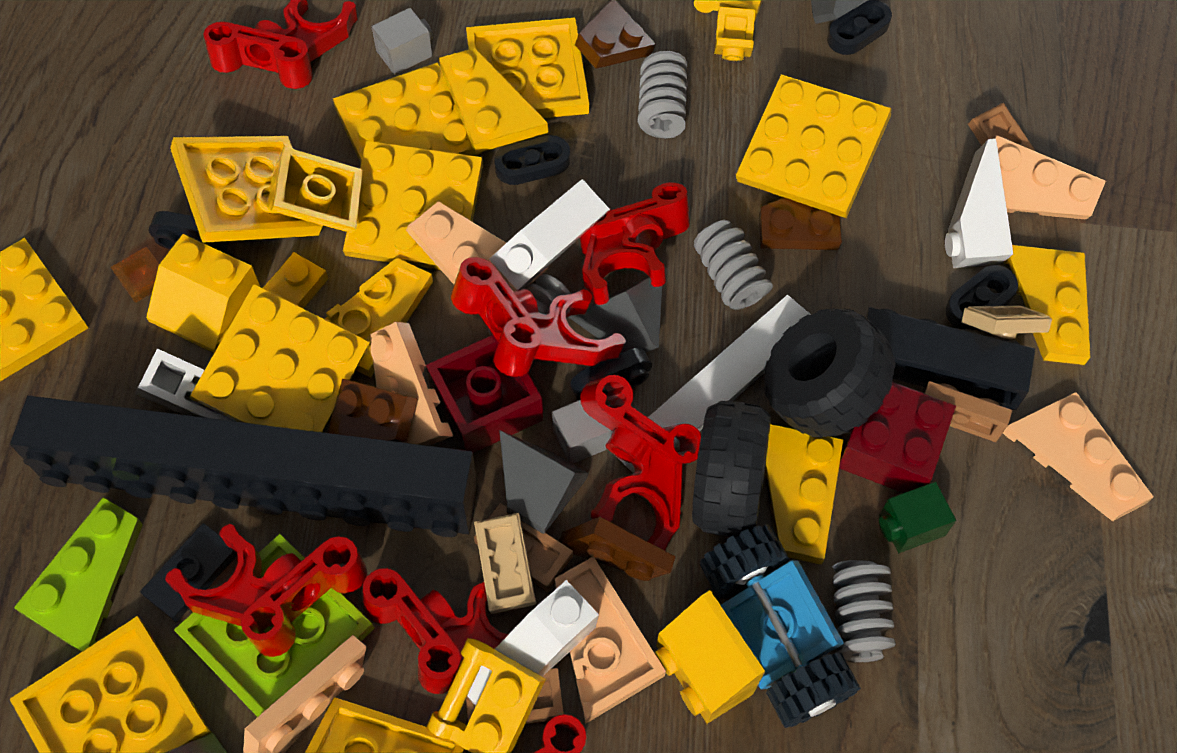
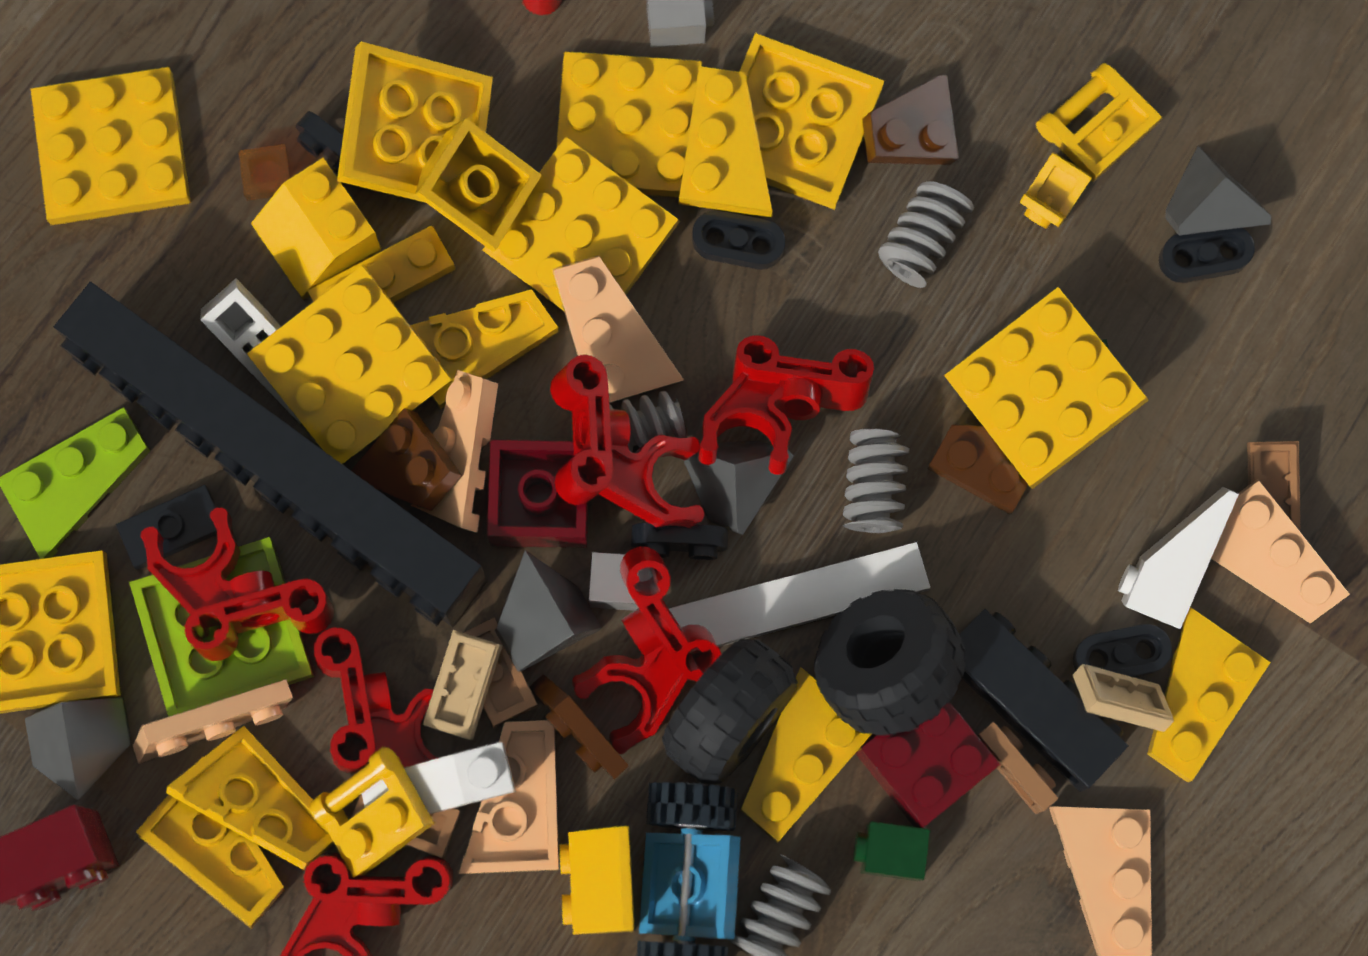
camera: 25 degrees right, 15 degrees up
(549, 235) = (690, 358): white slope -> none

